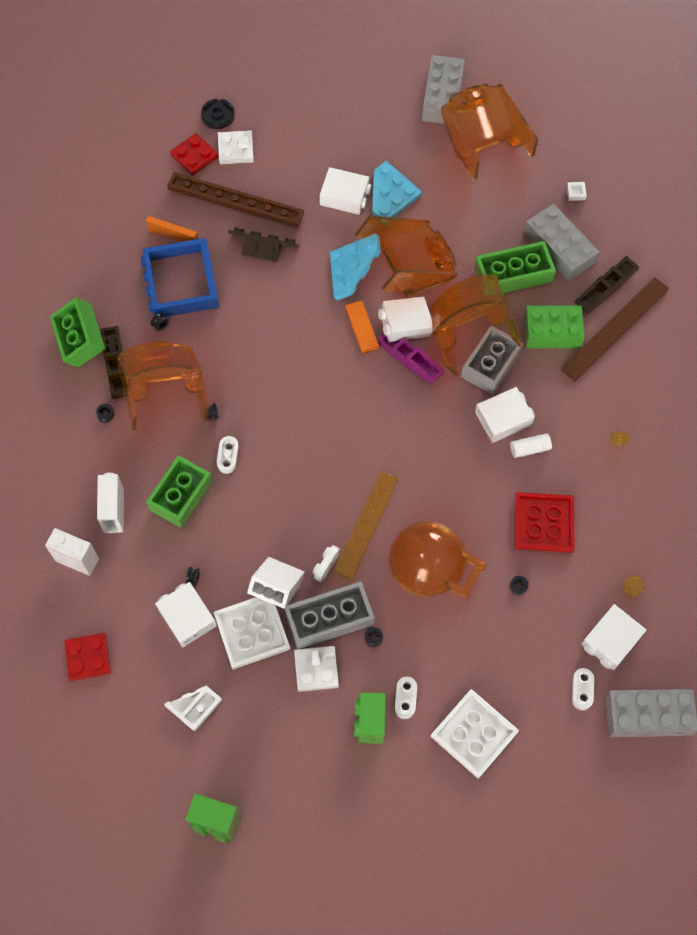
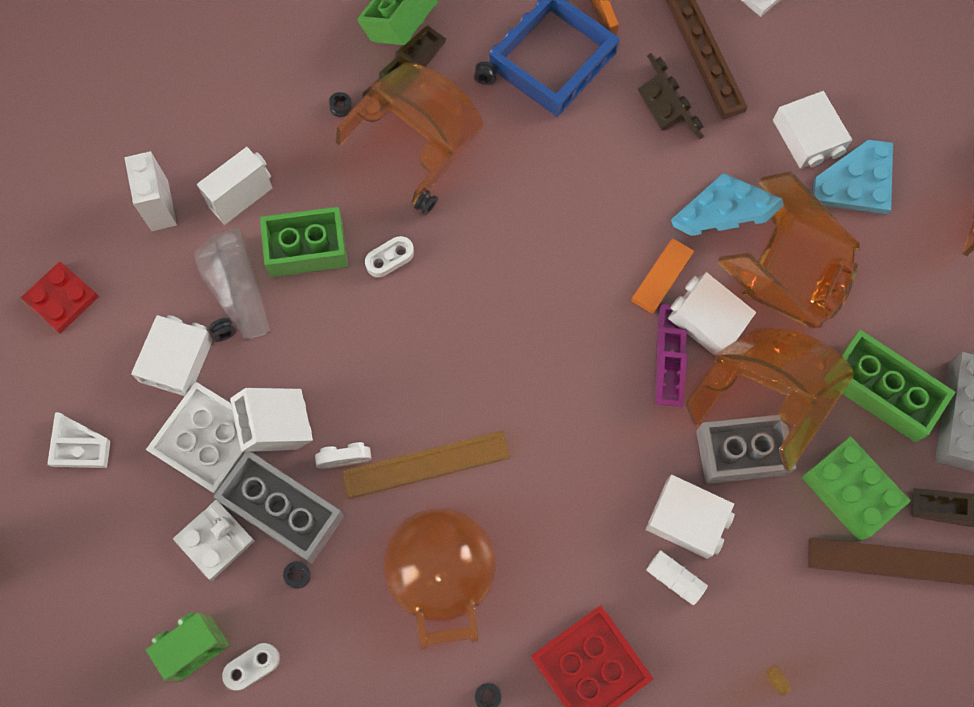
camera: 50 degrees right, 5 degrees up
(164, 549) = (230, 276): none -> clear wedge

